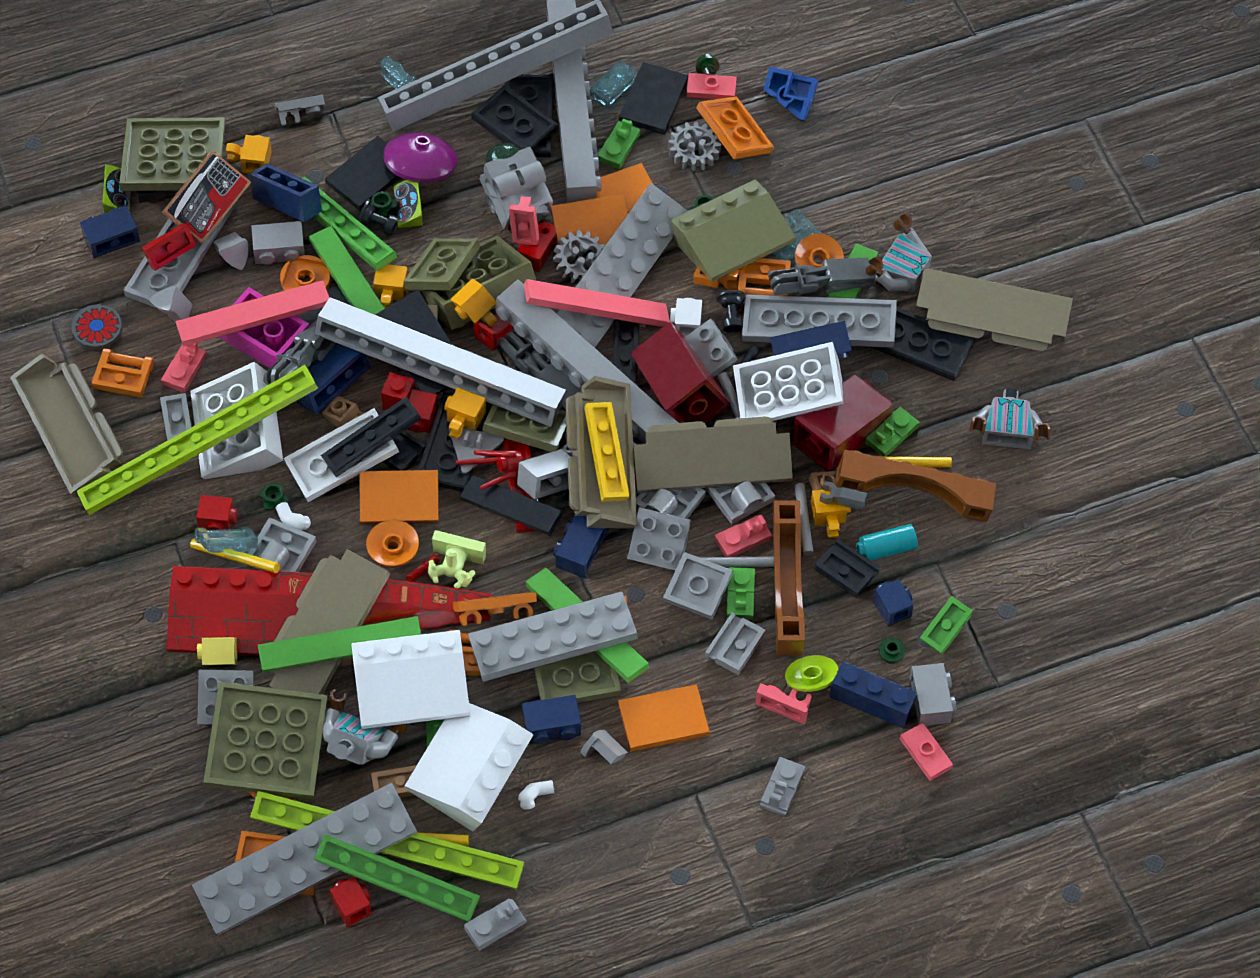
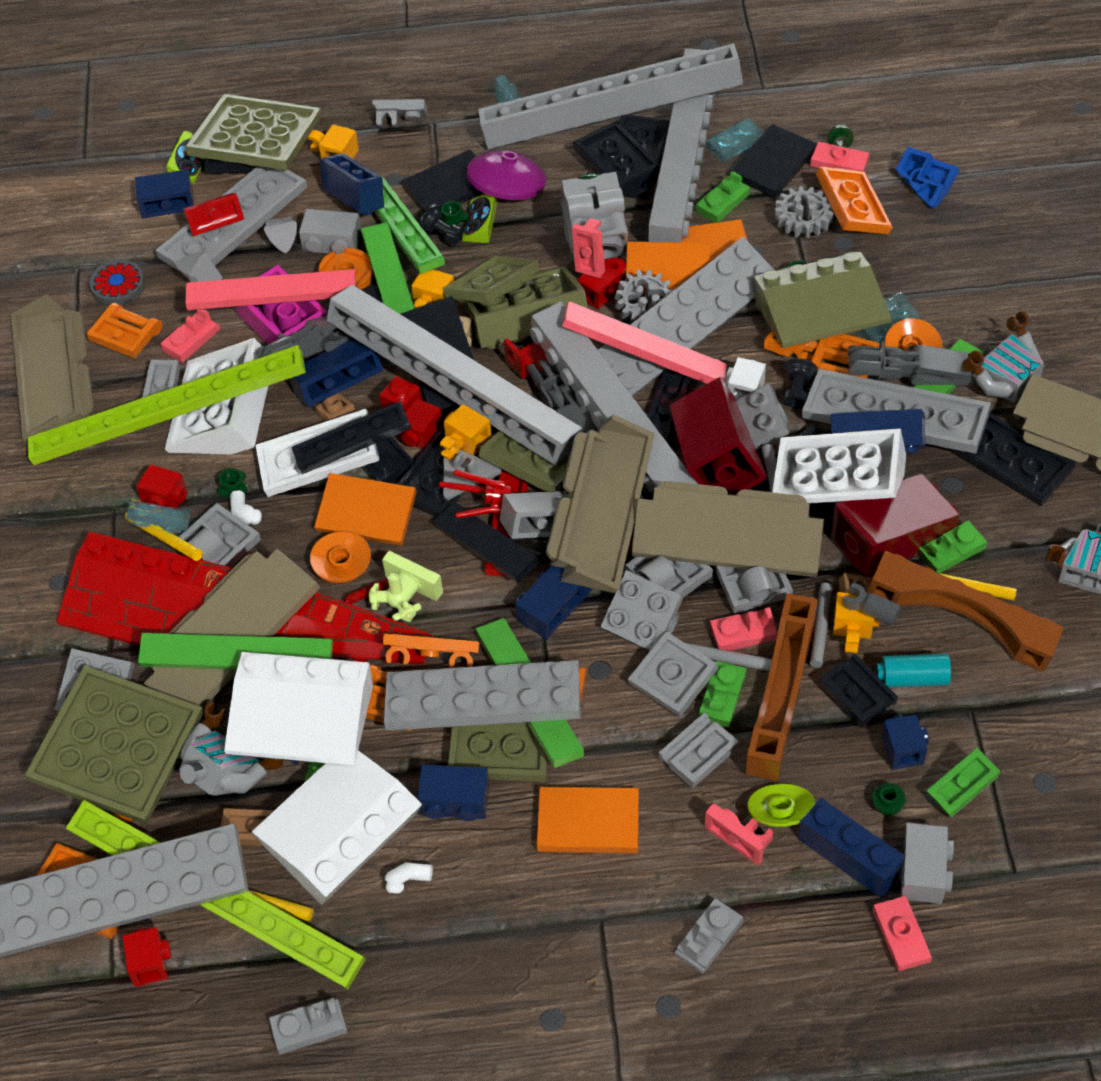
camera: 20 degrees right, 5 degrees down
(206, 196) = (267, 171): slope -> none
(218, 651) = (107, 634): light yellow brick -> none
(396, 877) = (205, 940): bright green tile -> none
(474, 303) = (509, 319): light orange brick -> none
(605, 745) = (506, 838): light grey tile -> none
(606, 452) = (604, 500): yellow plate -> none

